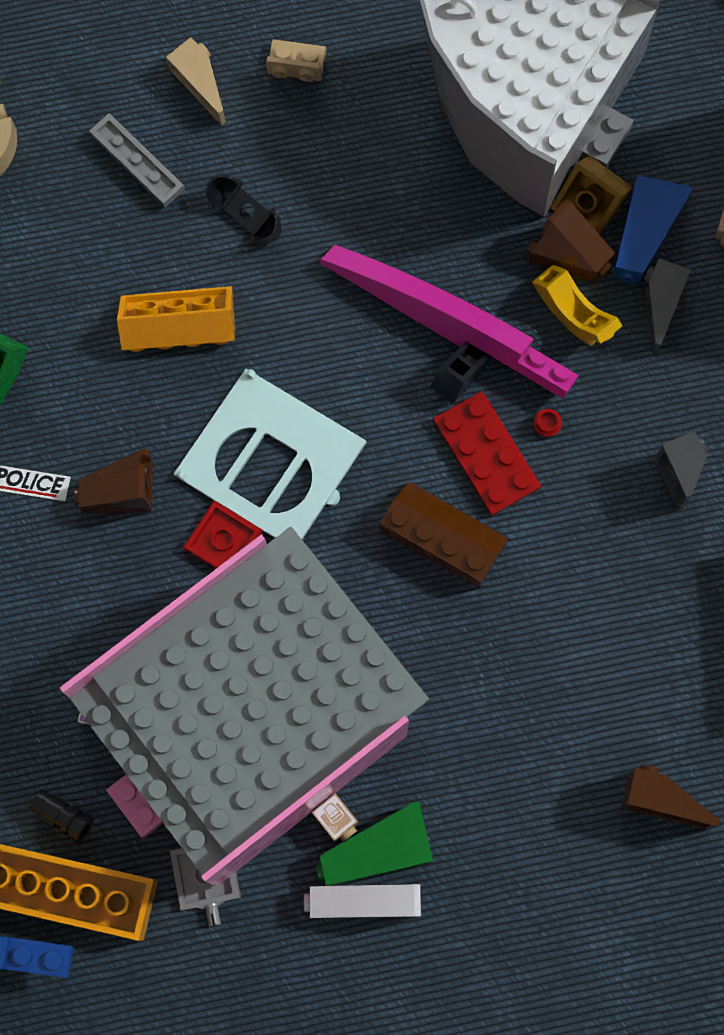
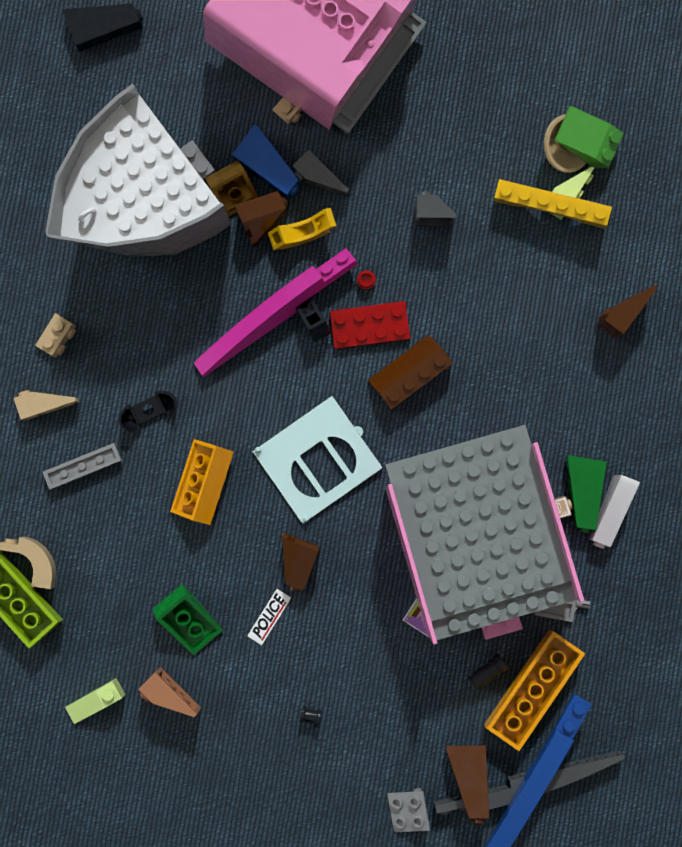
camera: 75 degrees left, 10 degrees up
(220, 535) = (357, 509): red tile -> none

